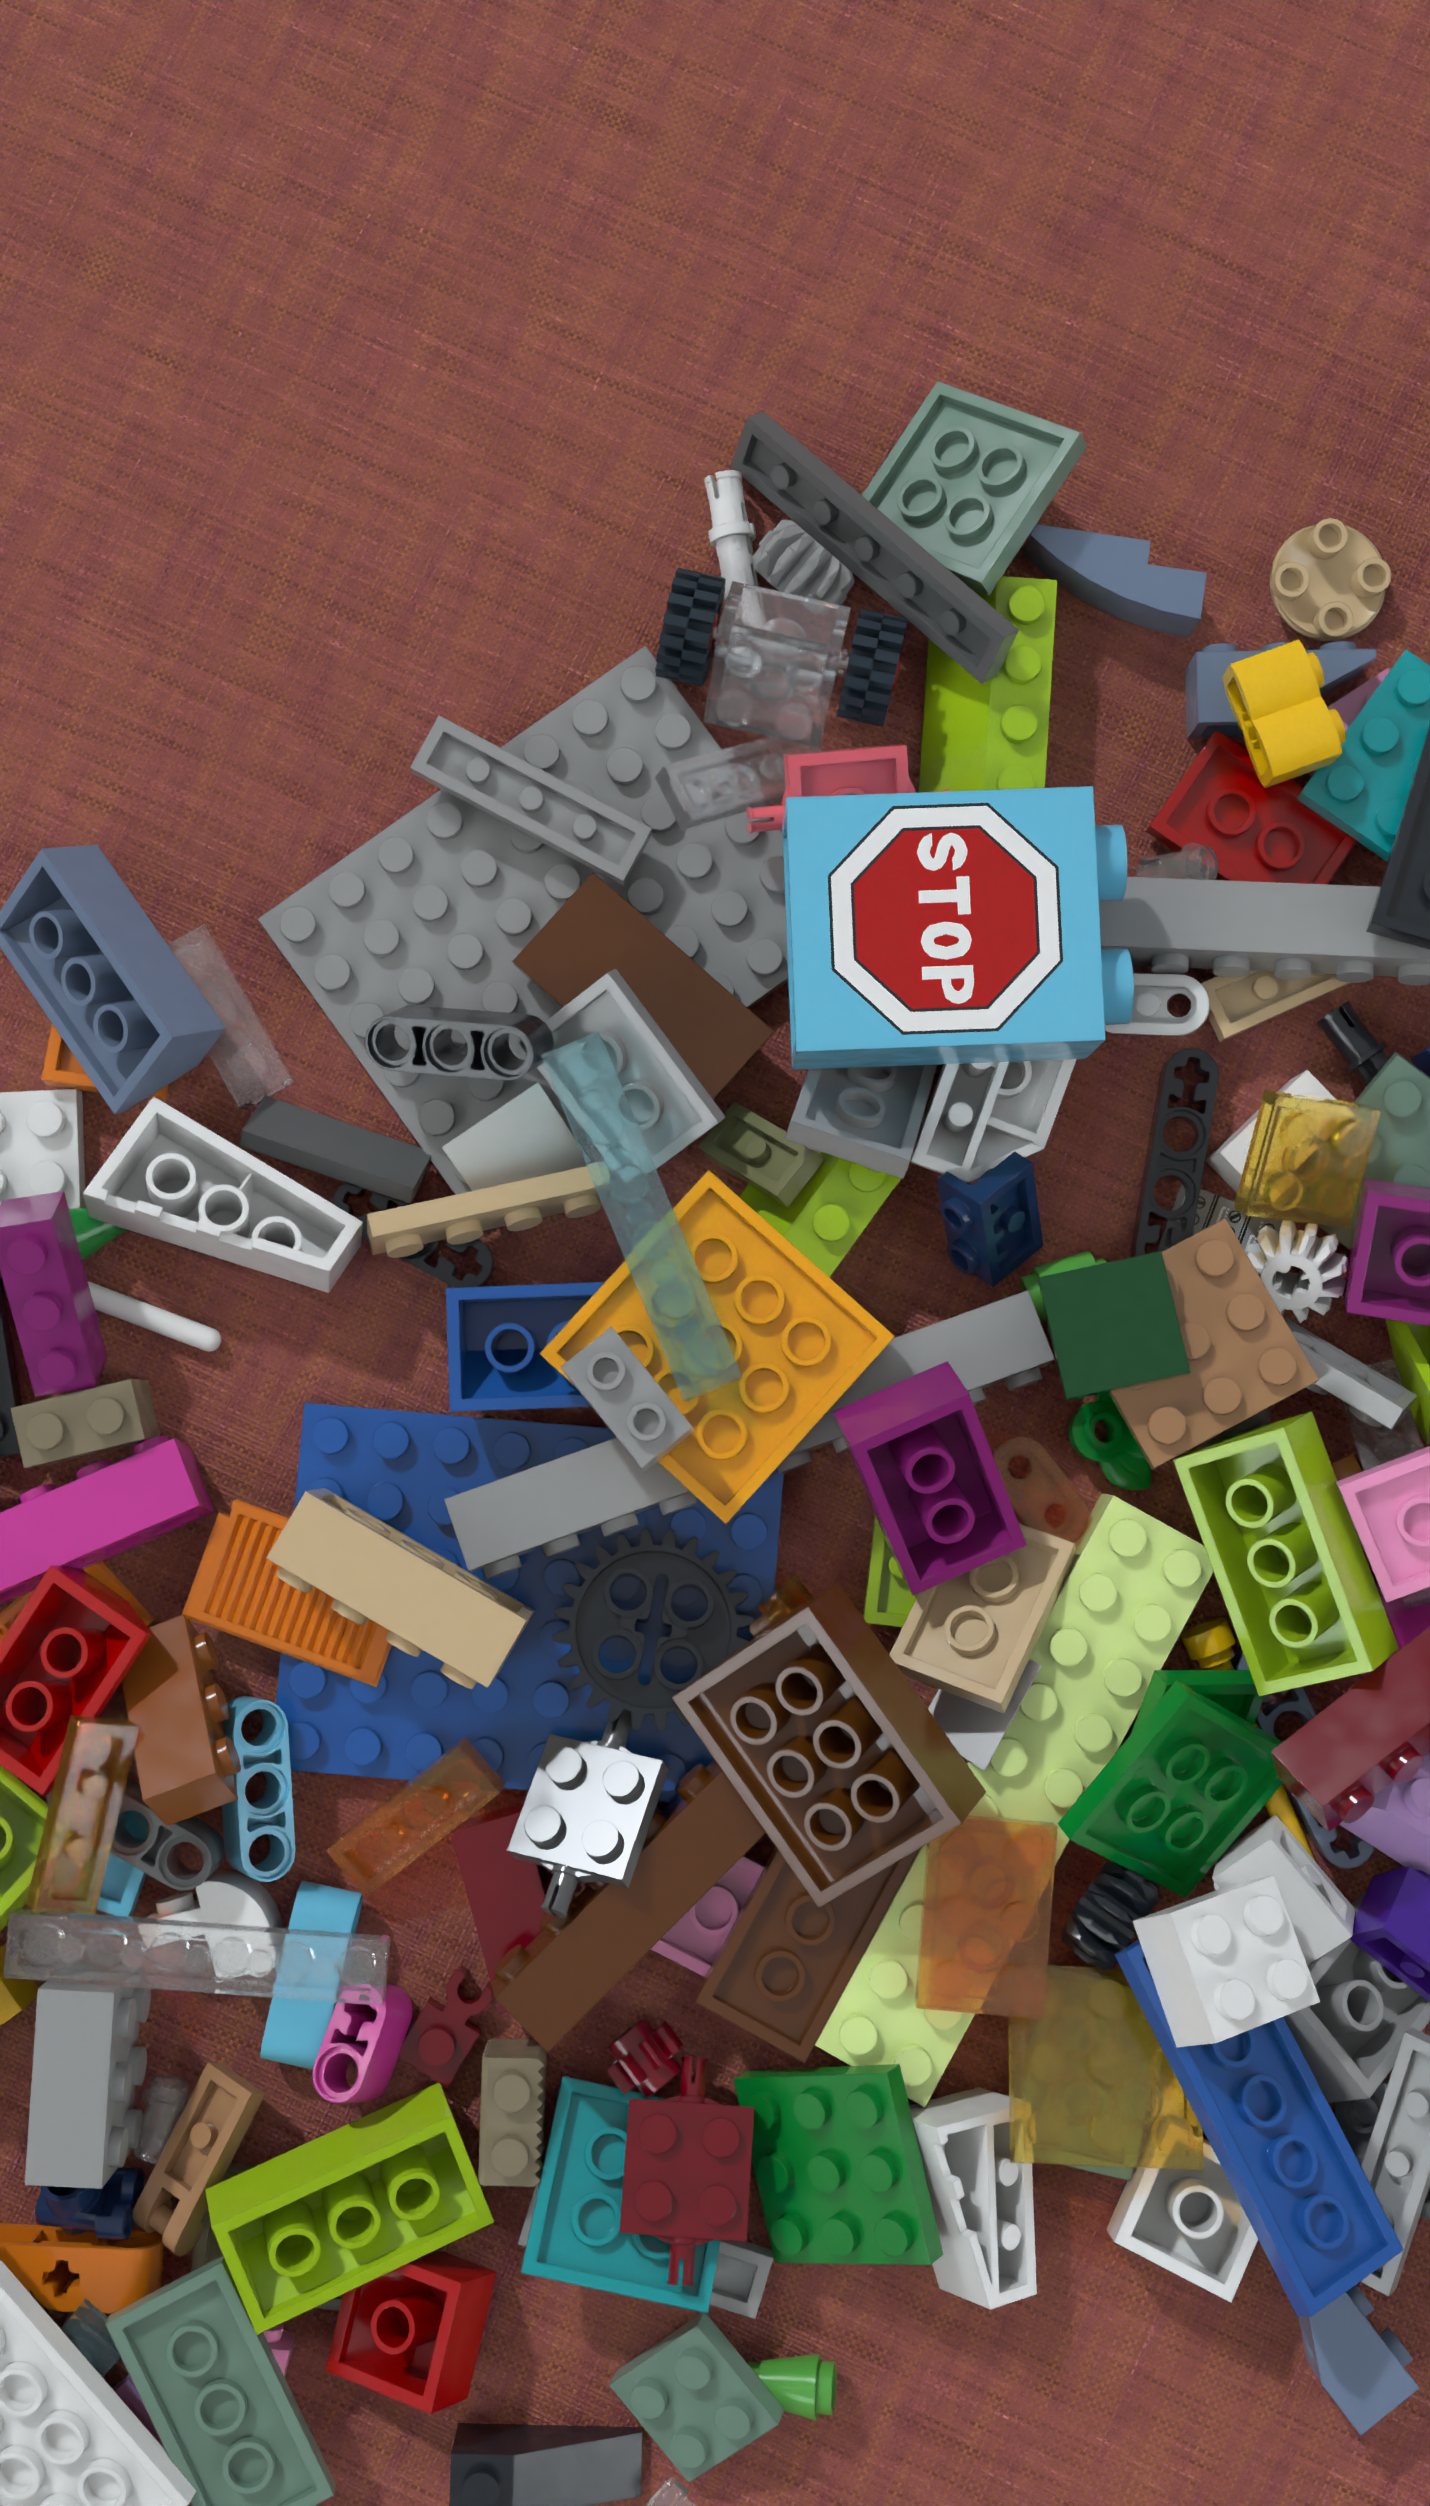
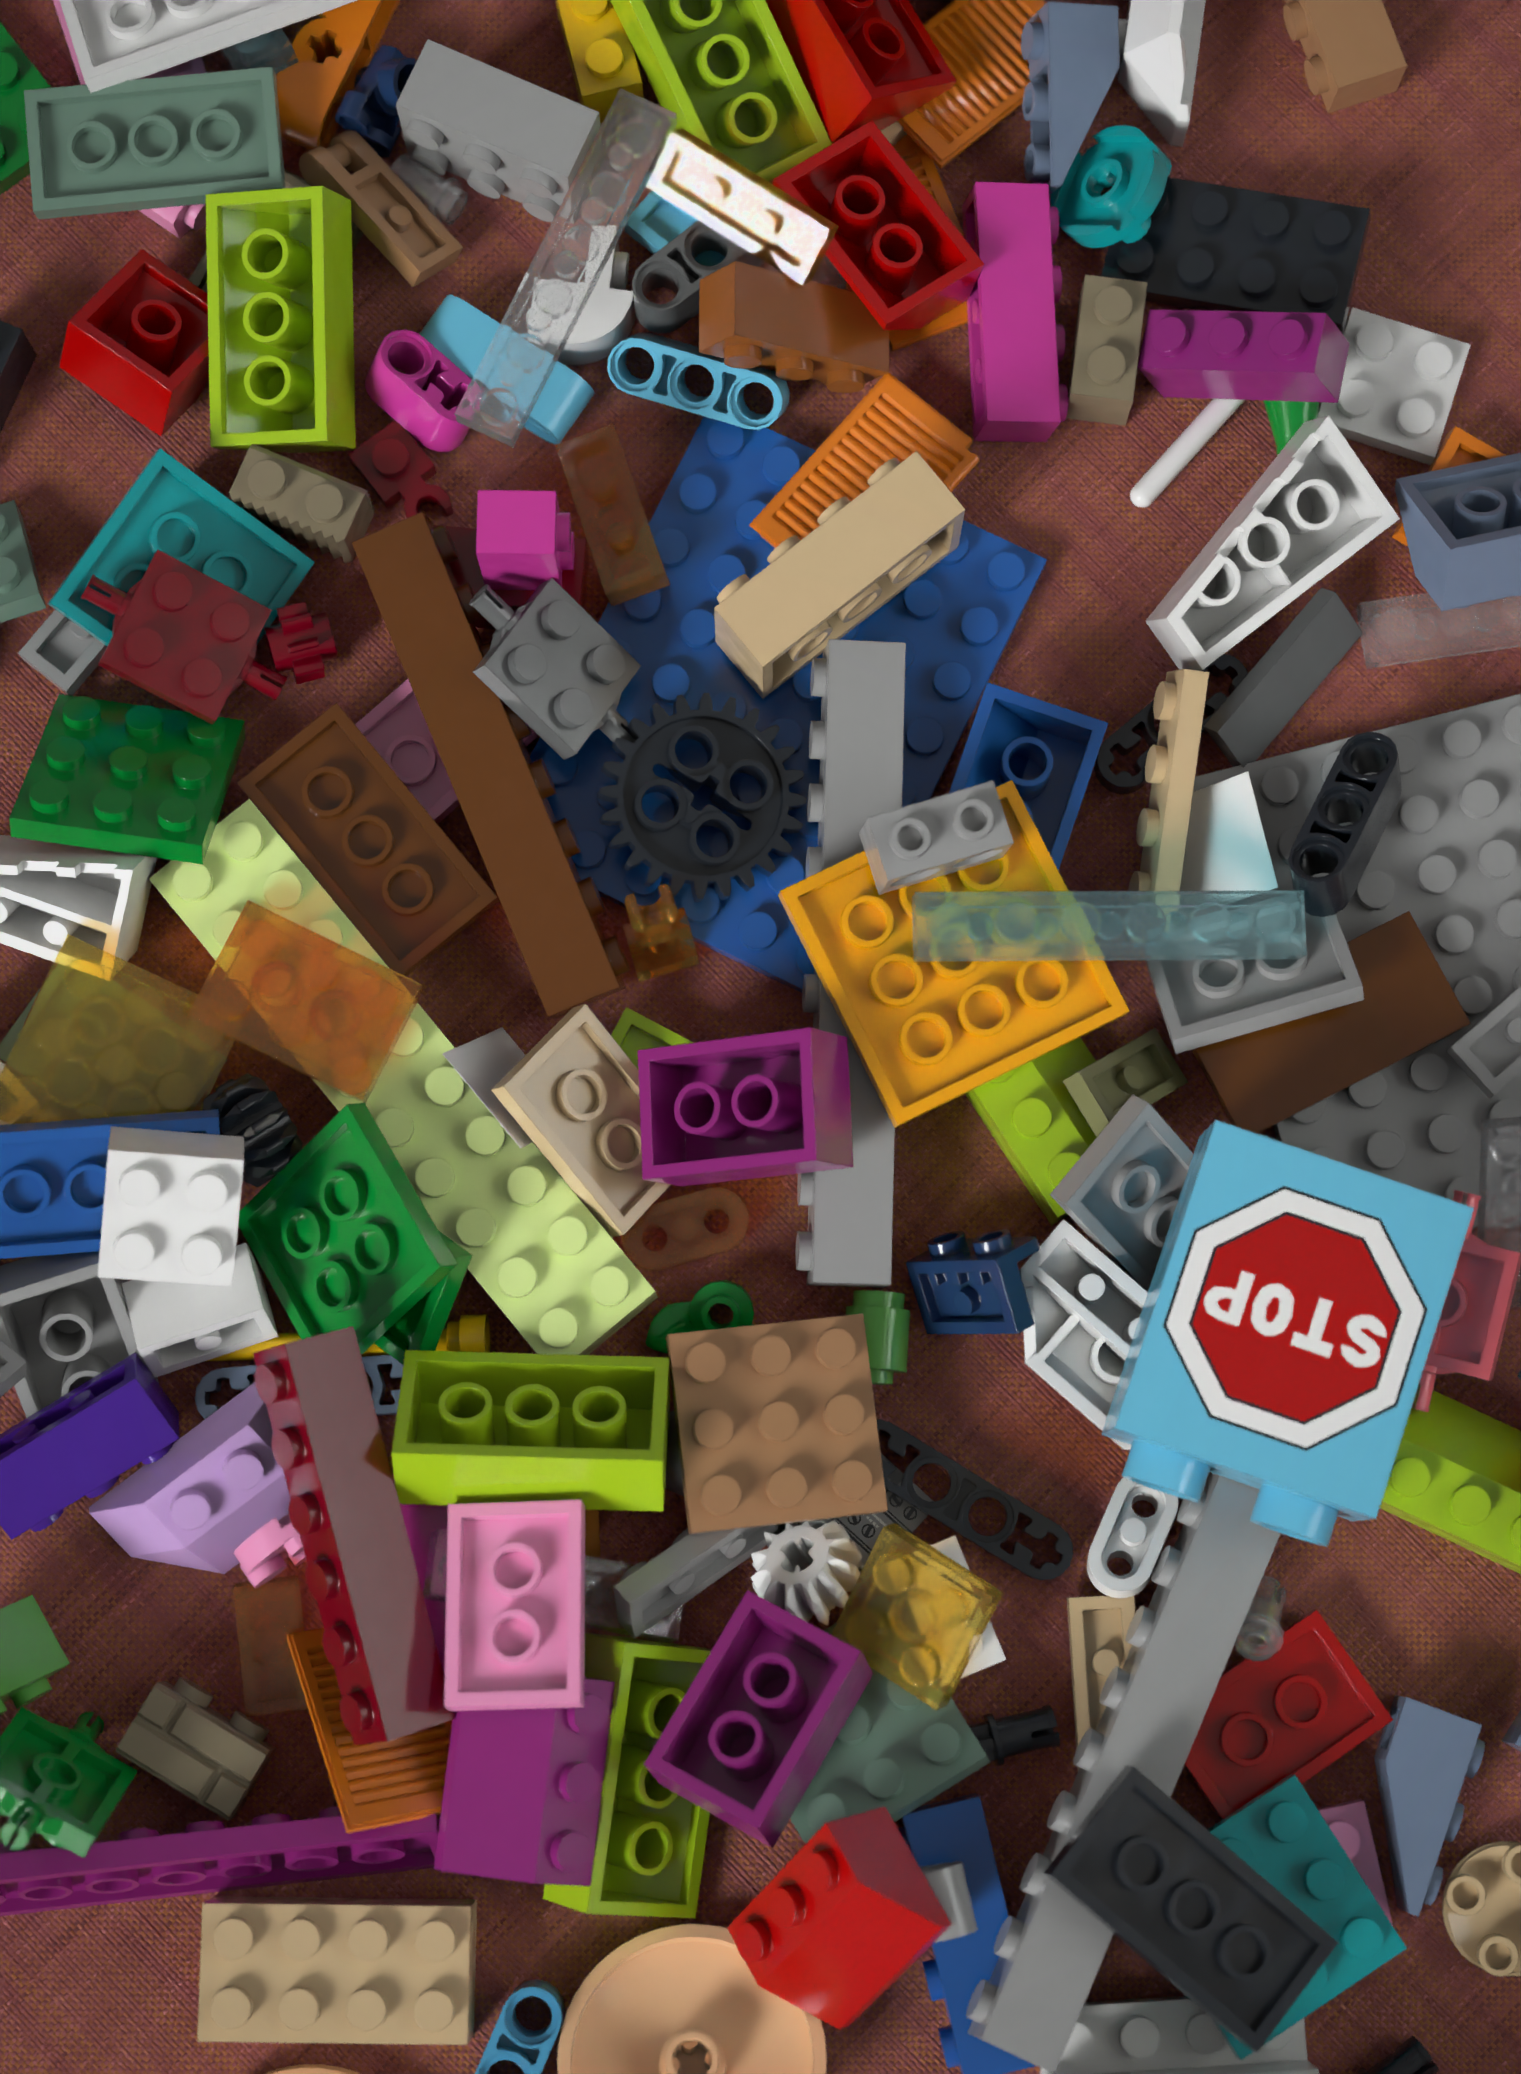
camera: 115 degrees right, 5 degrees down
(484, 1893) = (522, 538): none -> dark pink brick
(830, 1746) = (531, 910): reddish brown slope -> none
(1113, 1326) = (824, 1347): dark green tile -> none
(1283, 713) = (1384, 1781): yellow brick -> none

